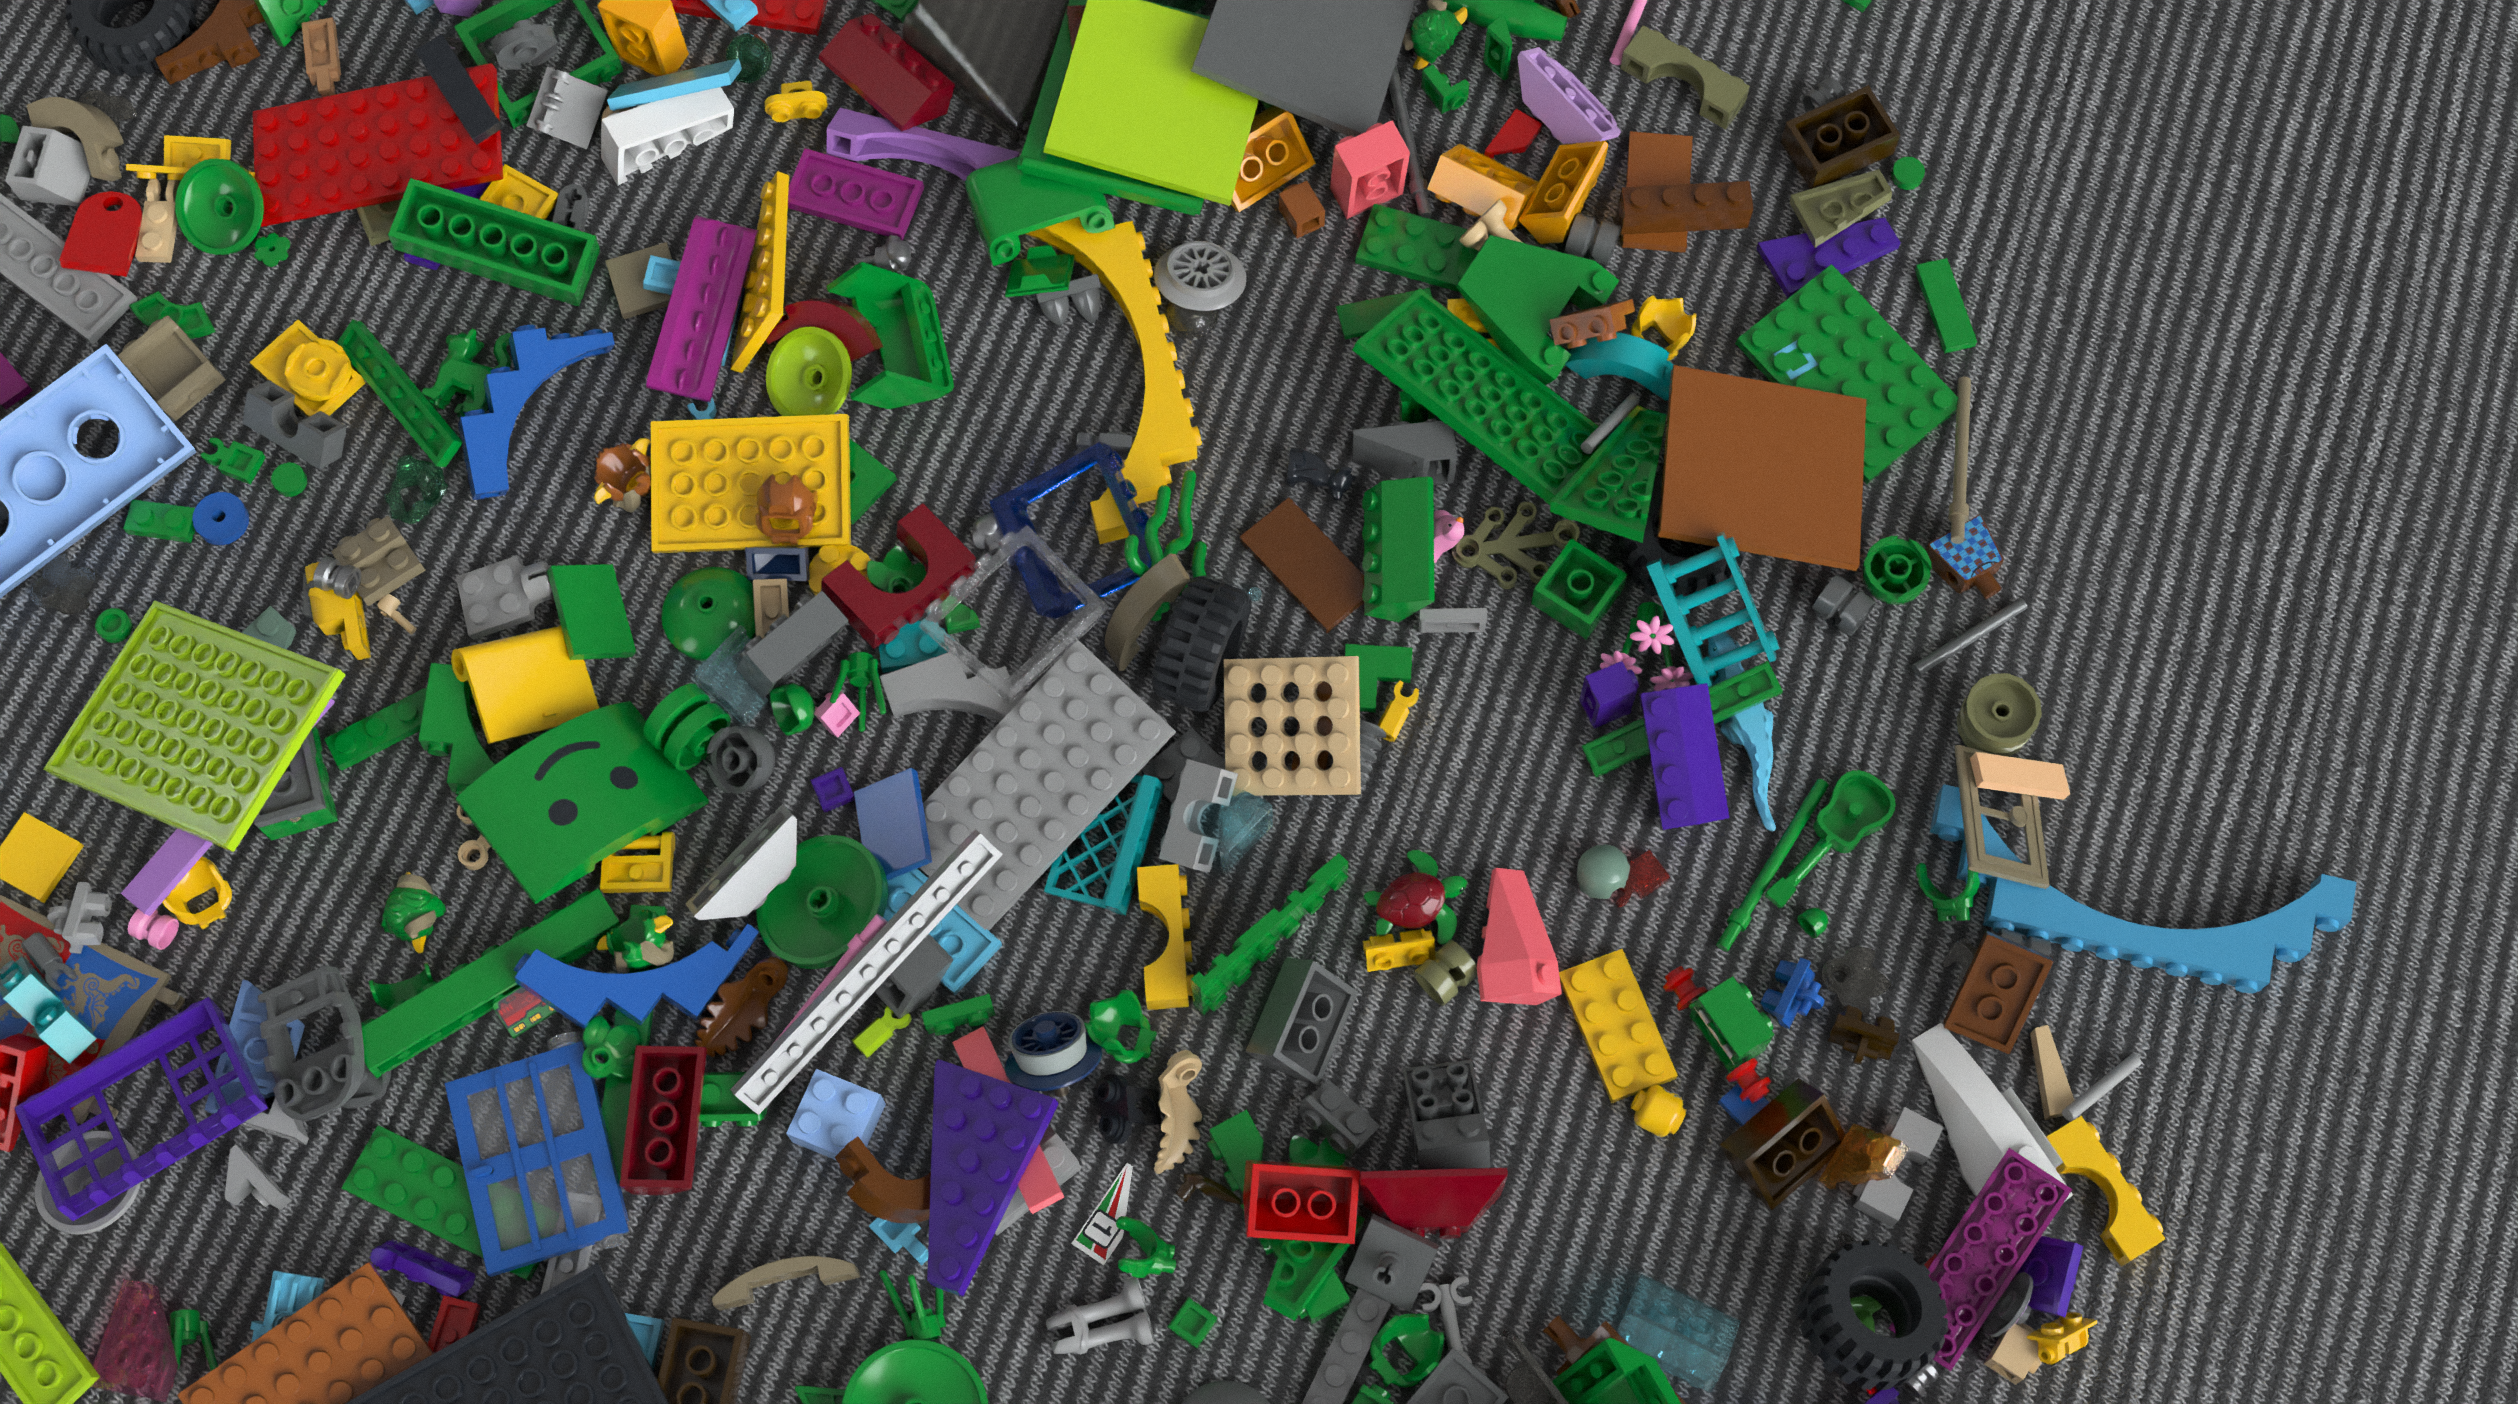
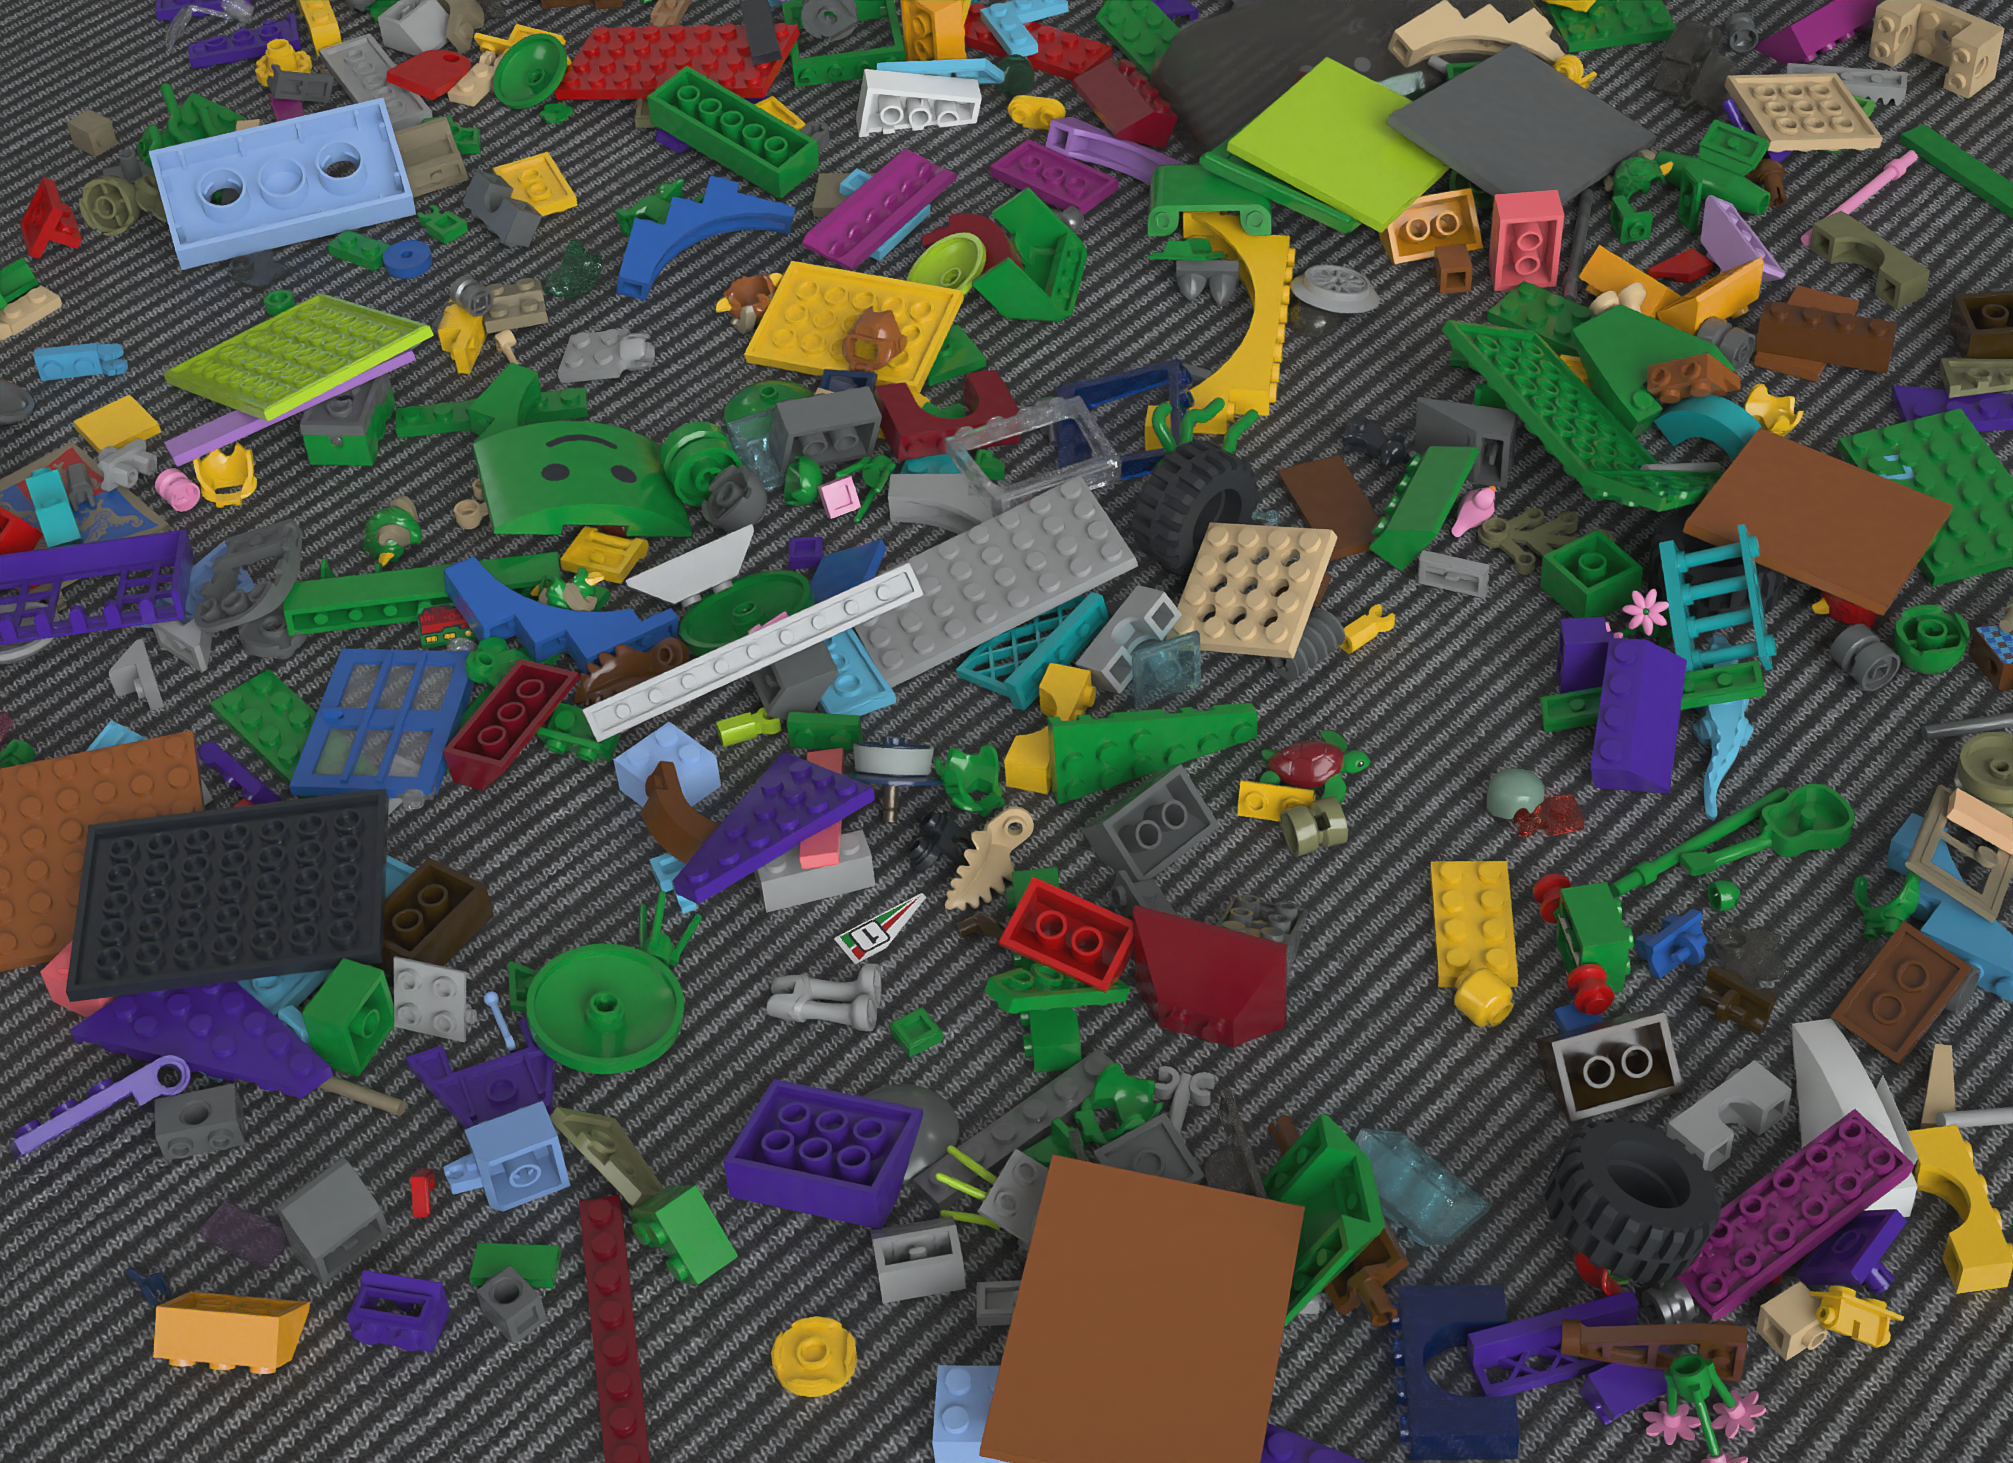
camera: 25 degrees right, 25 degrees down
(289, 479) = (477, 248): green tile -> none
(318, 370) = (542, 181): yellow tile -> none
(399, 394) = (598, 209): green plate -> none
(524, 683) = (581, 391): yellow door -> none
(566, 107) = (841, 71): light grey hinge -> none
(591, 611) = (668, 378): green tile -> none
(740, 1291) = (548, 870): dark tan slope -> none
(766, 275) = (944, 197): yellow wing -> none
(1138, 606) = (1139, 472): dark tan slope -> none
(1157, 1250) = (900, 958): green helmet -> none
(1379, 664) = (1355, 590): green tile -> none
(1391, 1262) = (1139, 1030): dark grey tile -> none
(1517, 952) = (1392, 826): coral wedge -> none
(1864, 1157) = (1690, 1089): clear orange wing -> none
(2011, 1306) = (1803, 1262): dark grey dish -> none

